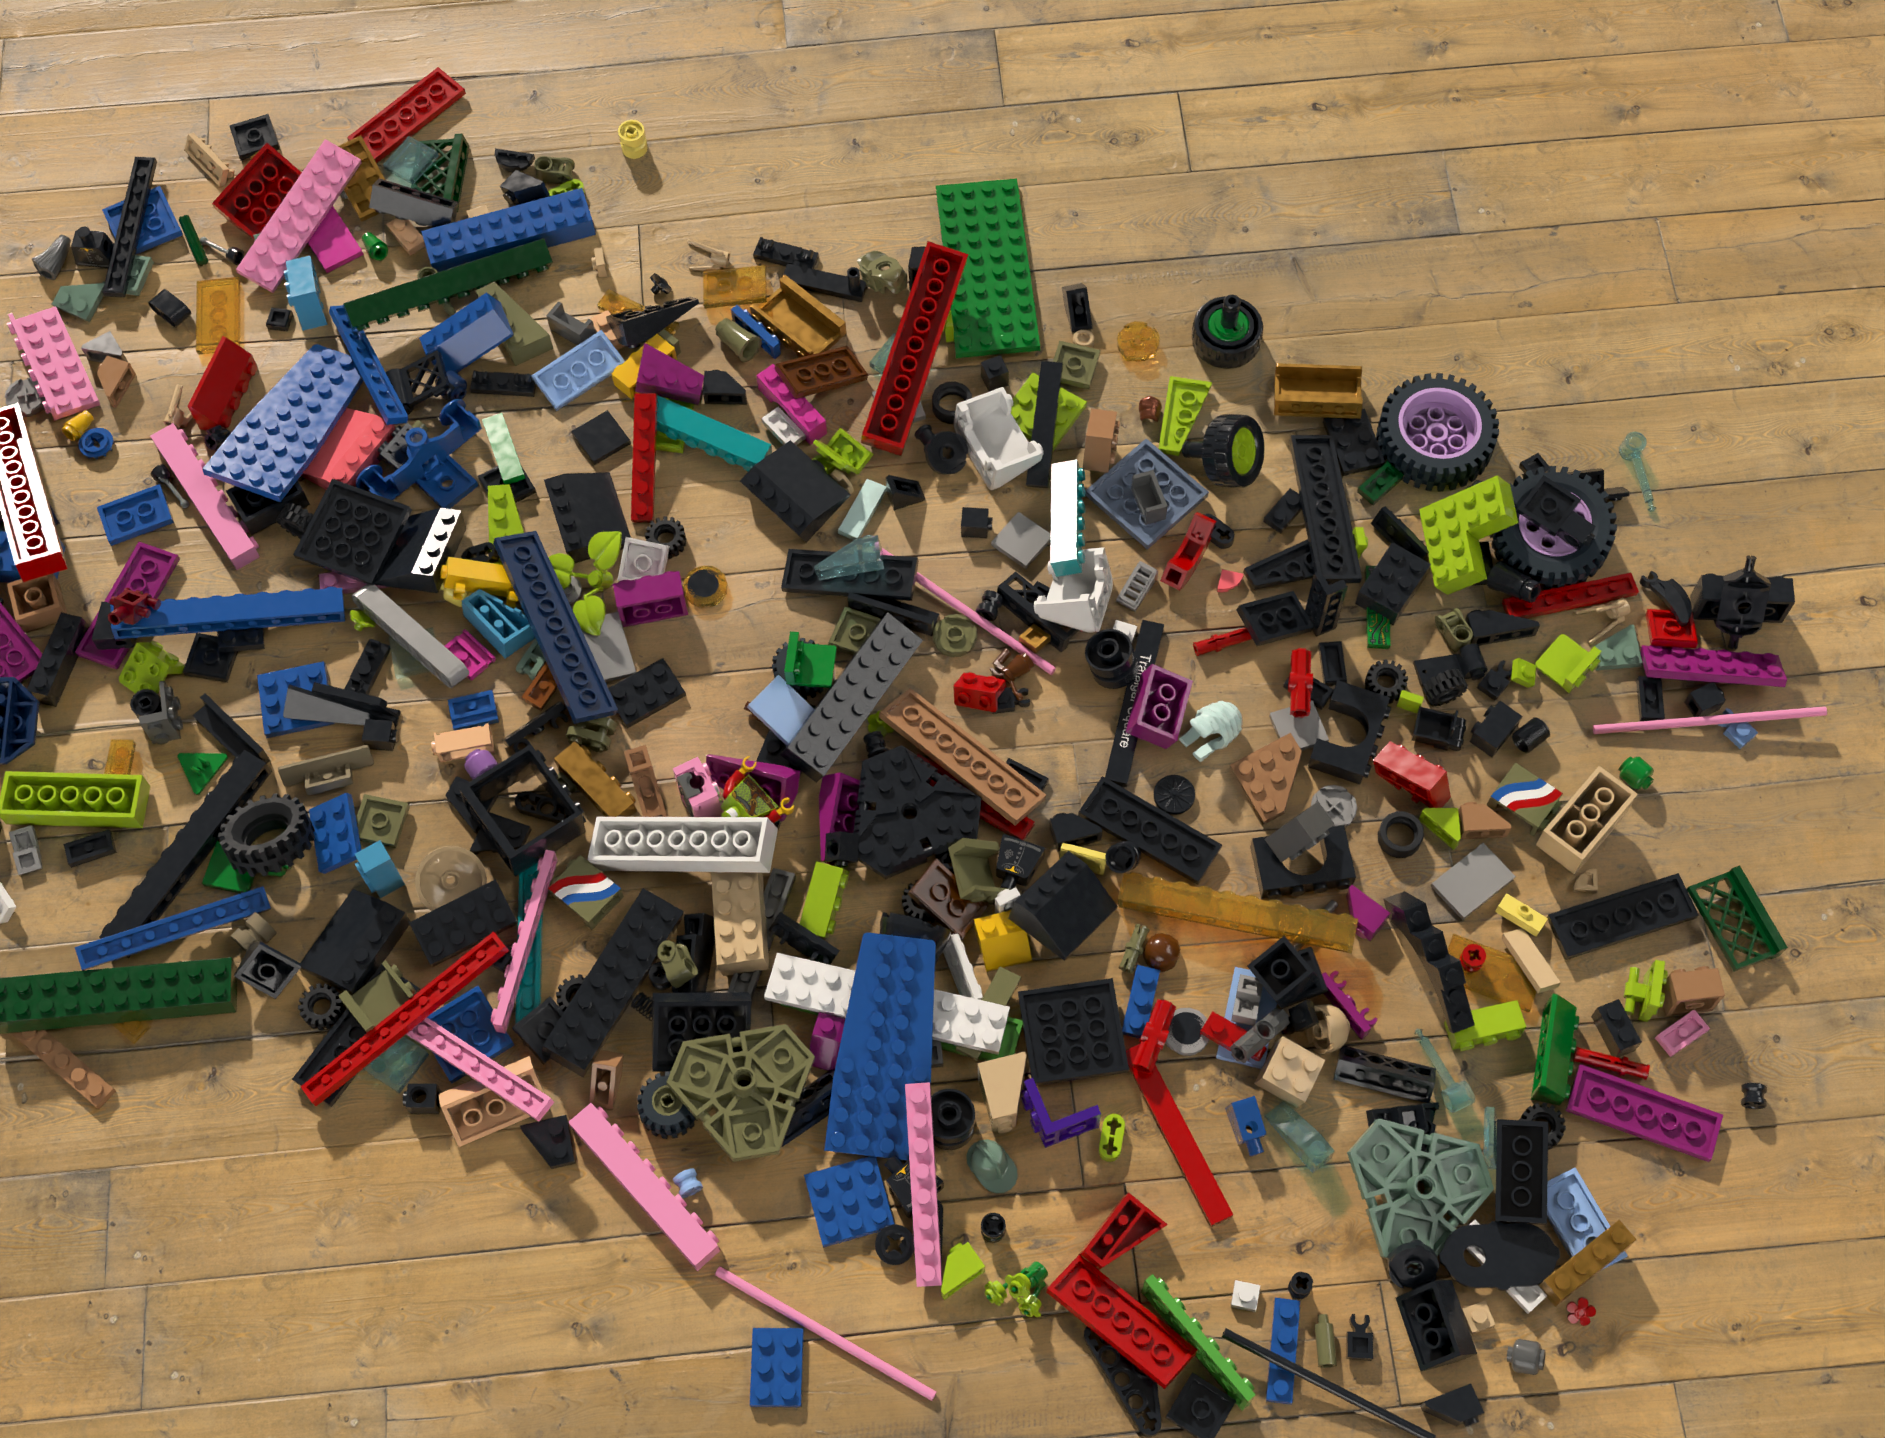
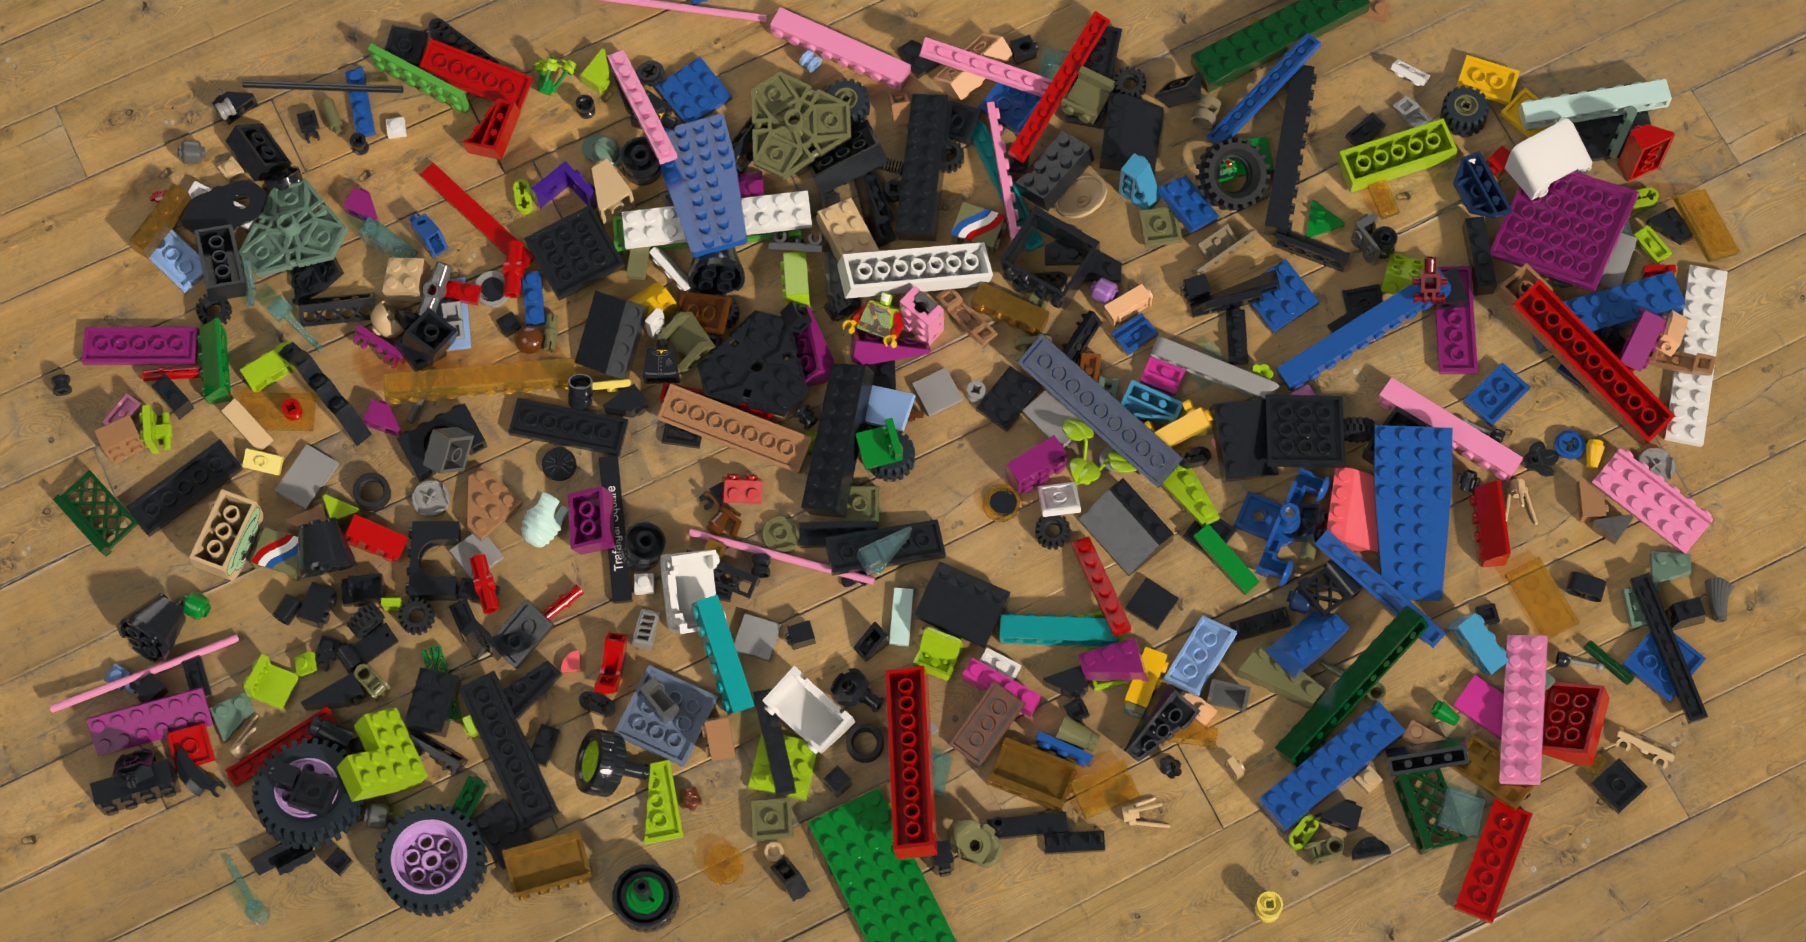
camera: 160 degrees right, 5 degrees up
(133, 440) = (1542, 458): none -> black plate
(676, 963) = (882, 192): olive piece -> none
(680, 713) = (977, 396): none -> light grey wheel
(719, 726) = (937, 392): none -> light grey tile
(727, 363) = (1077, 710): none -> black tile
(787, 851) = (839, 307): none -> black tyre
(1180, 980) = (508, 324): none -> black plate
(1319, 1194) = (360, 205): none -> magenta slope
(1468, 1386) = (225, 109): none -> light grey wheel
(1476, 763) = (322, 549): none -> black cone
(1690, 756) = (153, 627): none -> black cone

